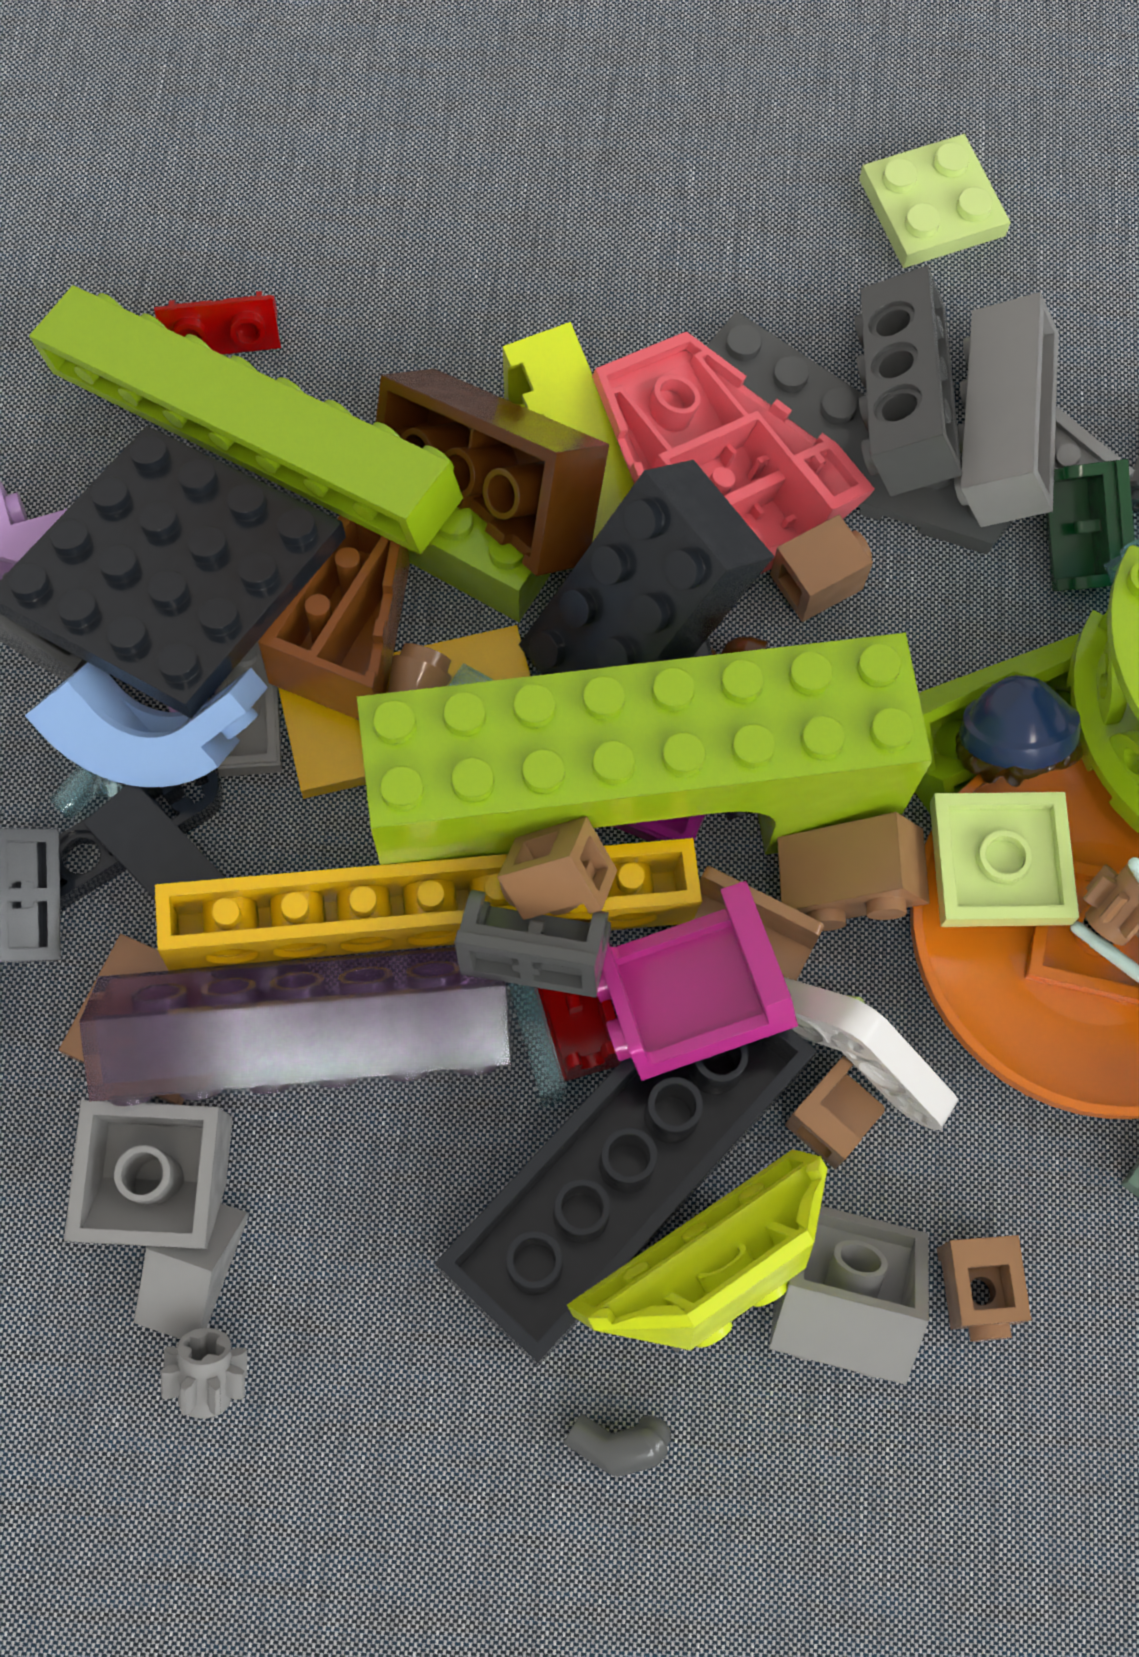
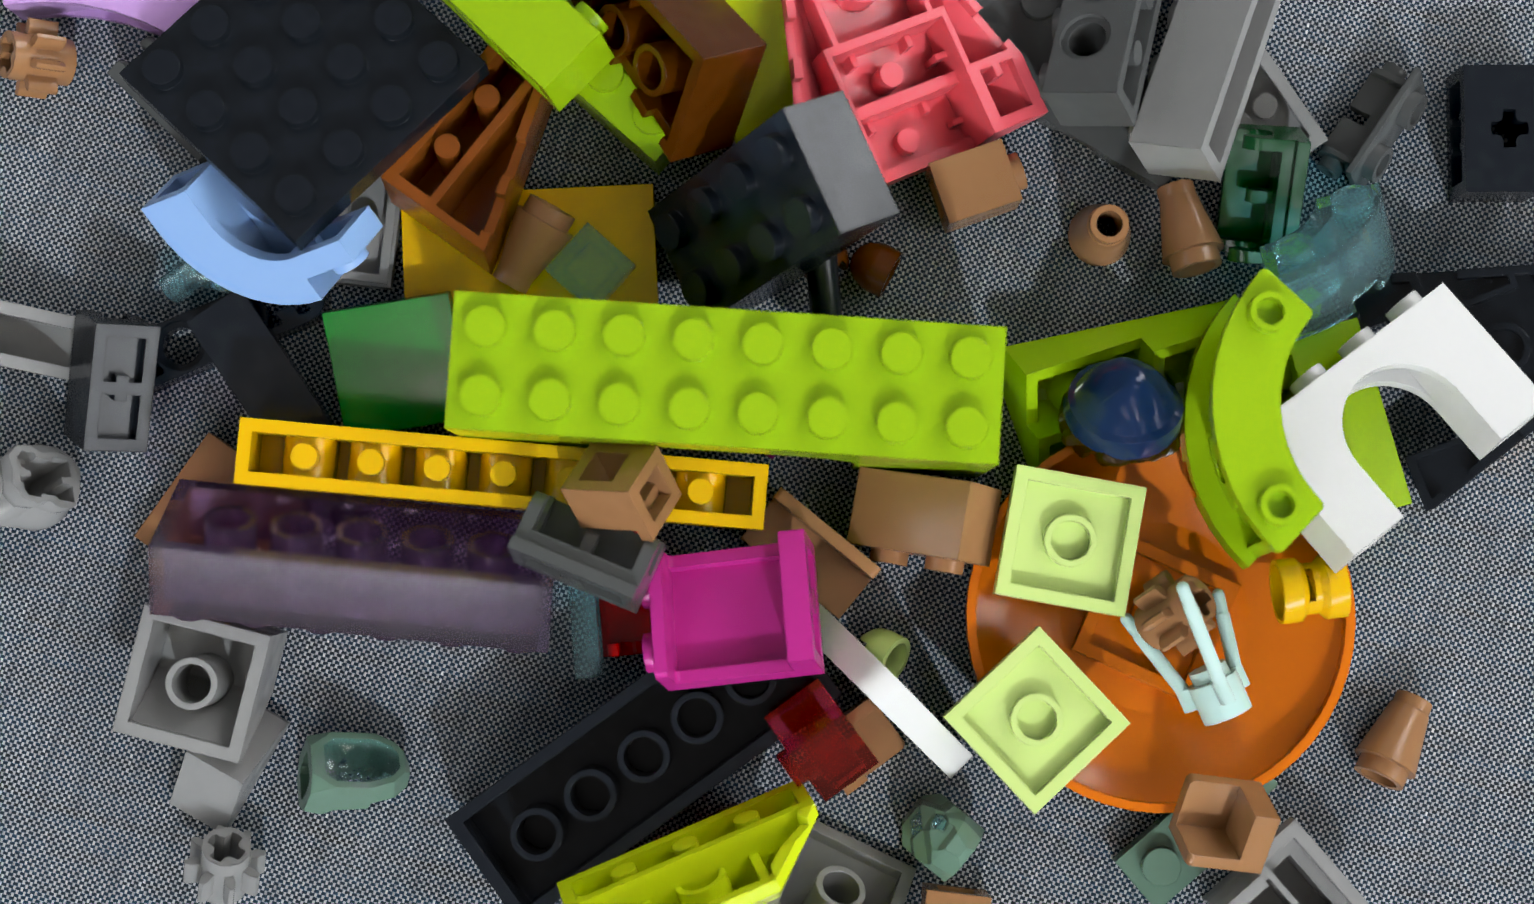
camera: 15 degrees right, 15 degrees up
(300, 820) = (391, 361): none -> green tile
(320, 1245) = (349, 771): none -> sand green rock
(809, 1097) = (819, 742): none -> clear red brick
(946, 1188) = (940, 835): none -> sand green rock
(950, 589) = (1093, 246): none -> medium nougat cone
(1018, 1038) = (1036, 719): none -> yellowish green plate
(1028, 578) = (1187, 233): none -> medium nougat cone

